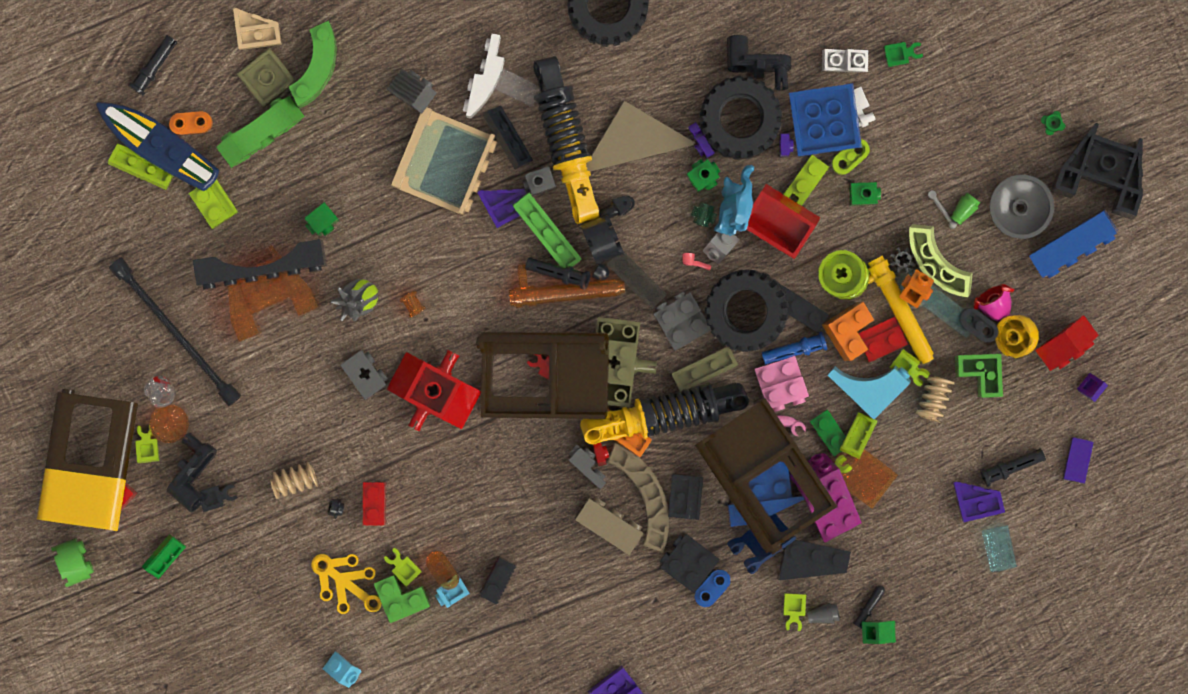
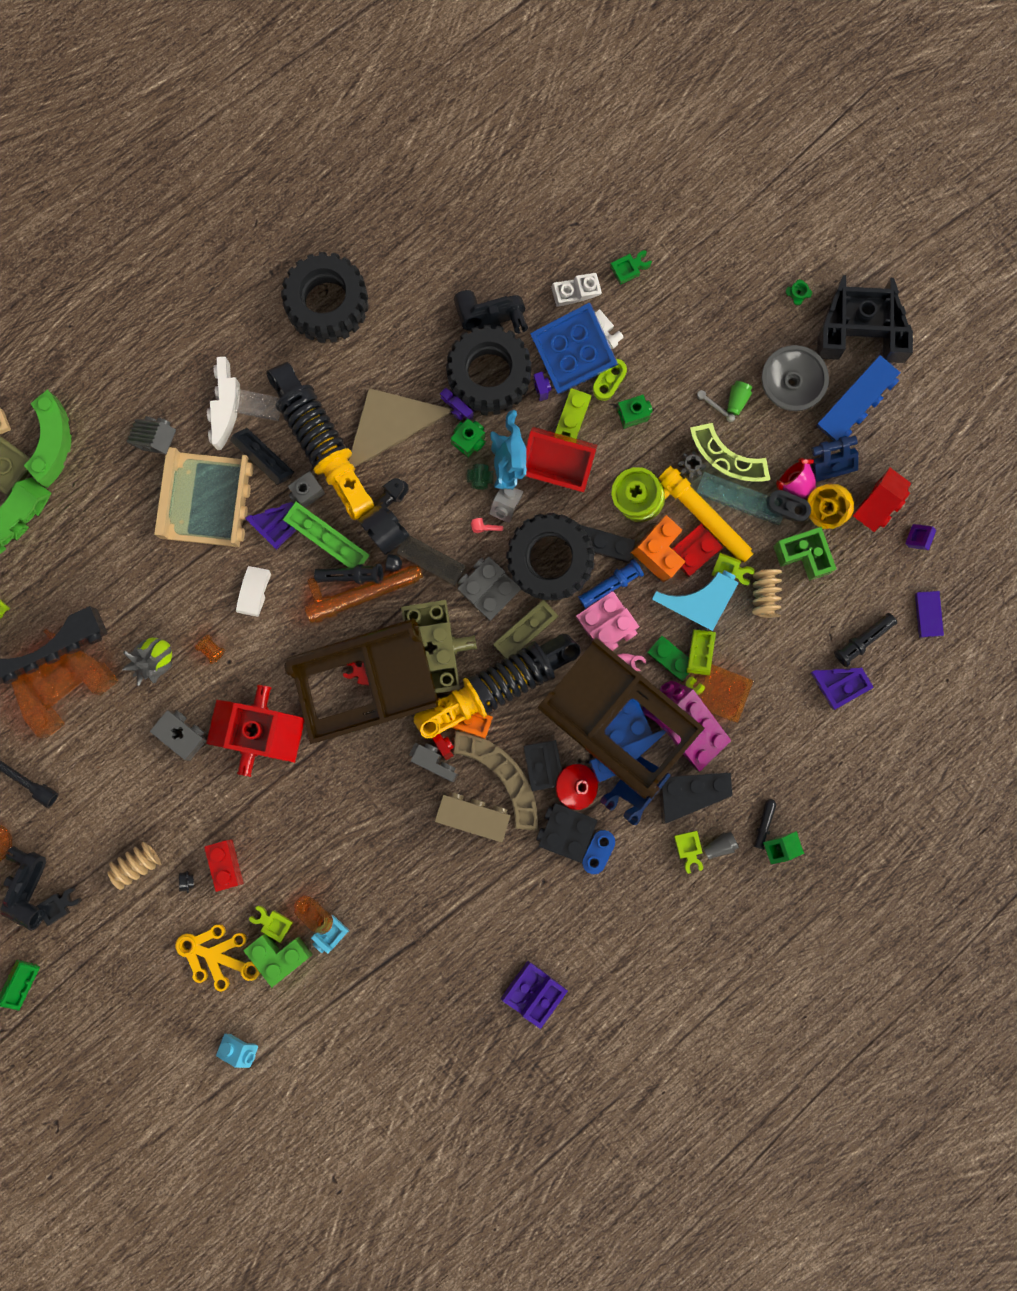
camera: 15 degrees left, 5 degrees down
(321, 220) = (94, 591): green brick -> none
(466, 261) = (252, 591): none -> white slope
(497, 580) = (373, 908): black brick -> none
(701, 524) = (568, 783): none -> red dish
(916, 288) = (716, 485): orange brick -> none
(999, 548) = (878, 727): clear light blue slope -> none
(1035, 297) = (835, 464): none -> dark blue plate

